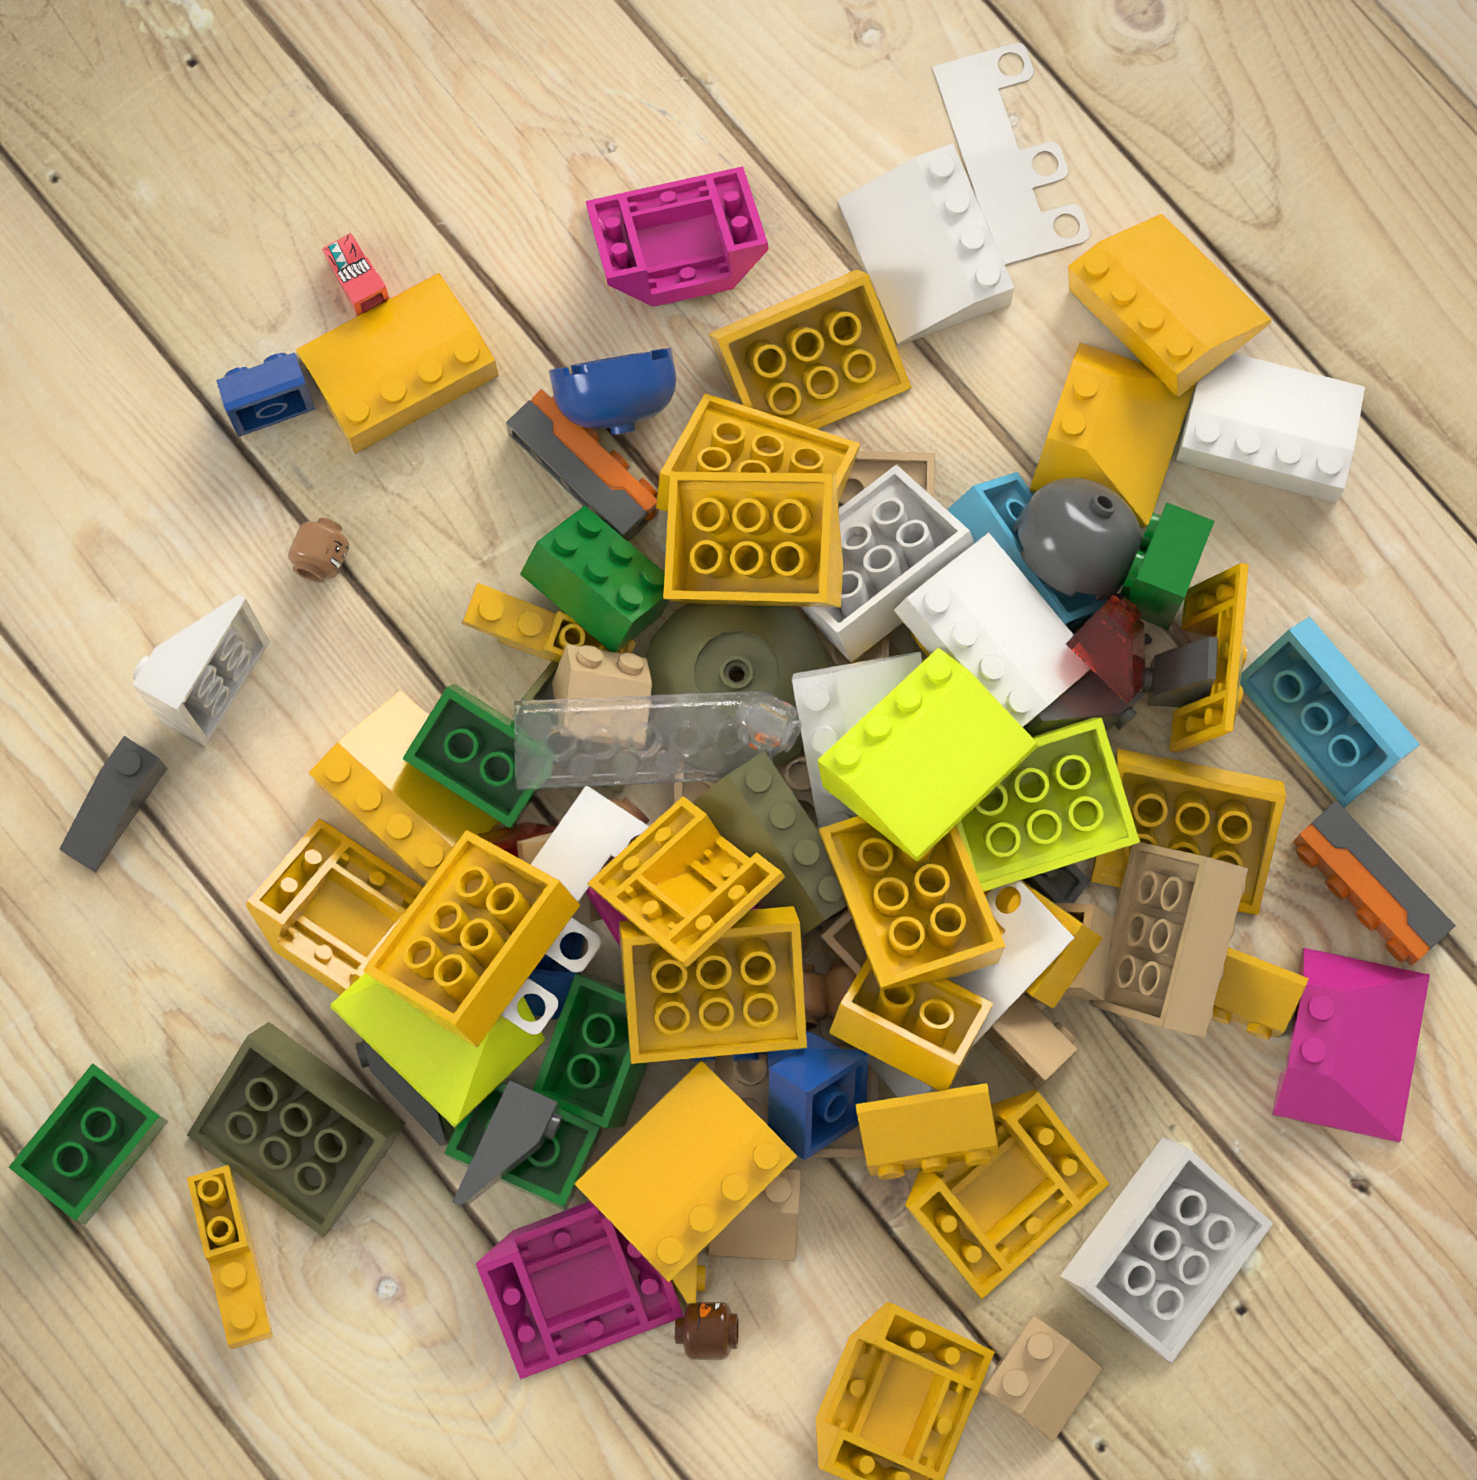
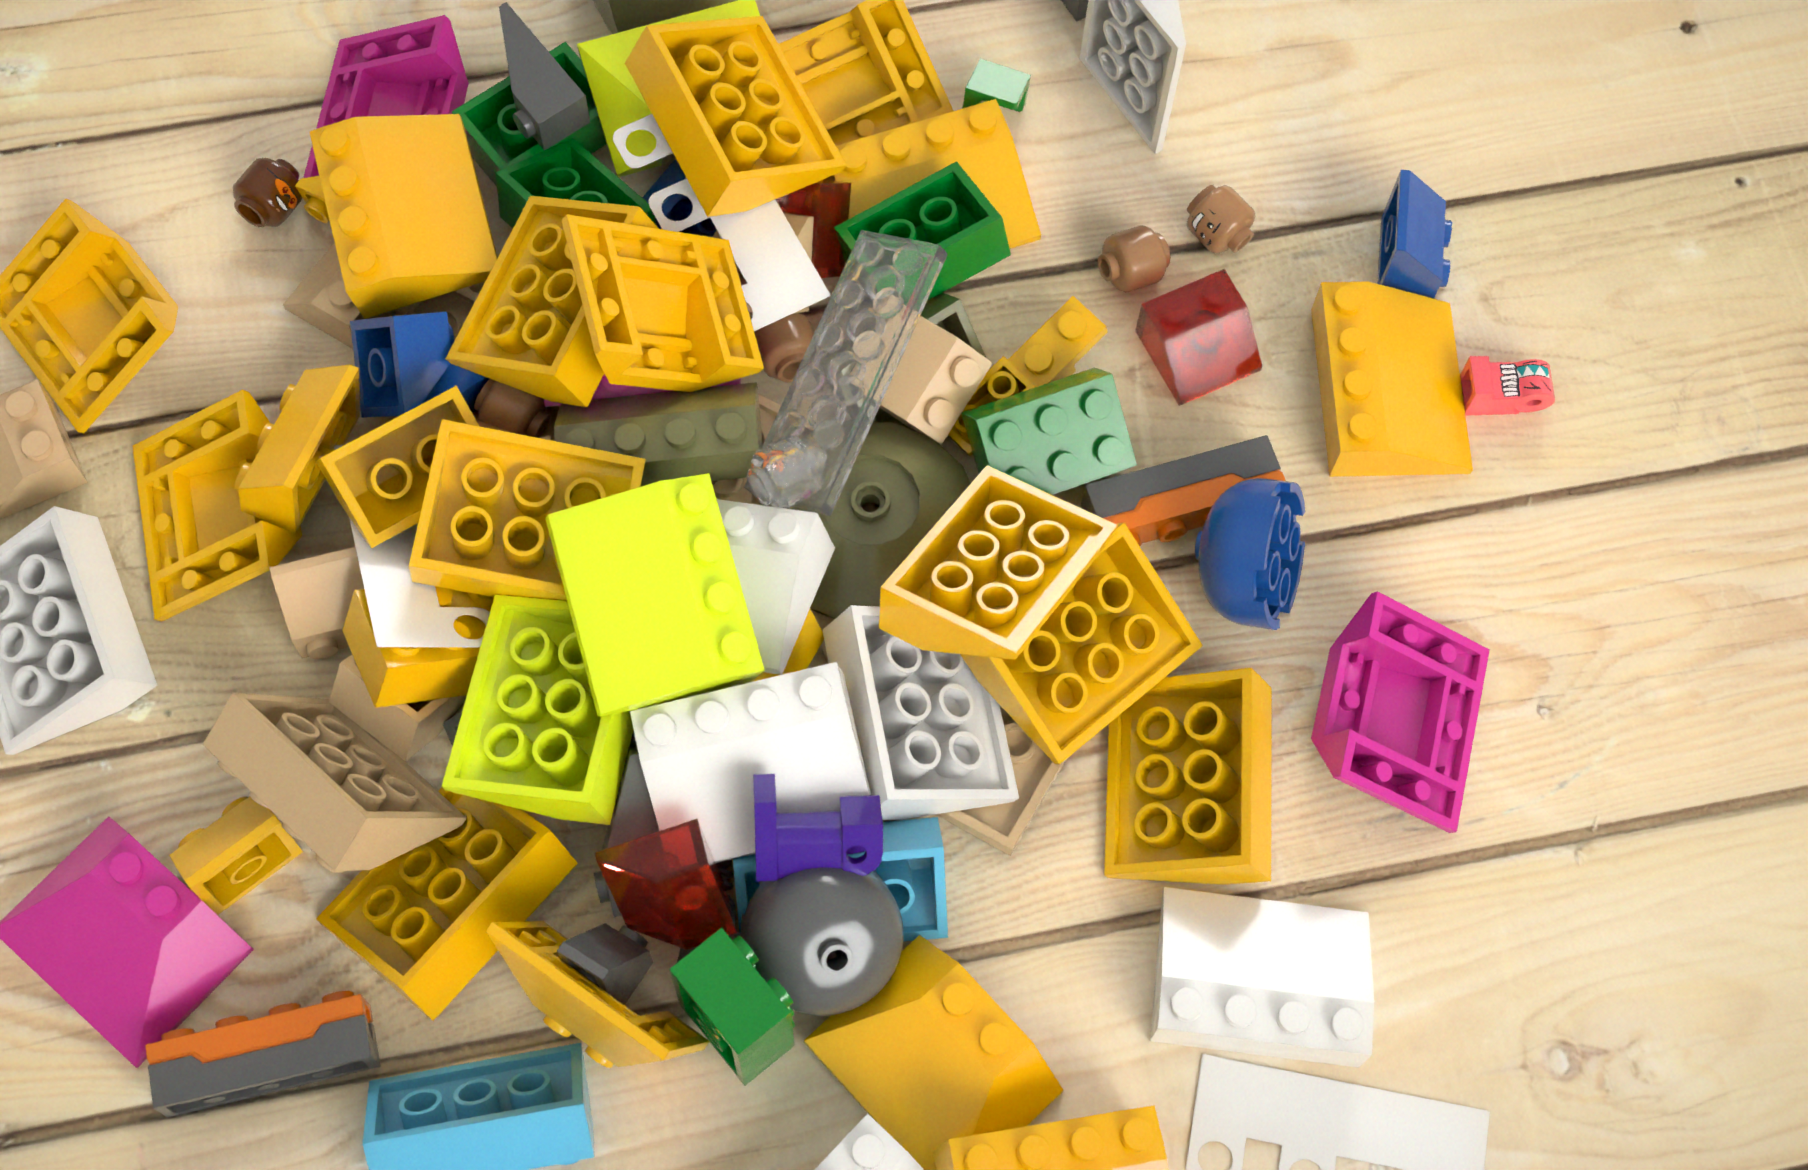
camera: 115 degrees right, 10 degrees down
(290, 786) = (997, 82): none -> panel
(391, 600) = (1134, 258): none -> medium nougat head
(435, 519) = (1199, 337): none -> clear red slope
(1028, 559) = (815, 839): none -> dark purple piece

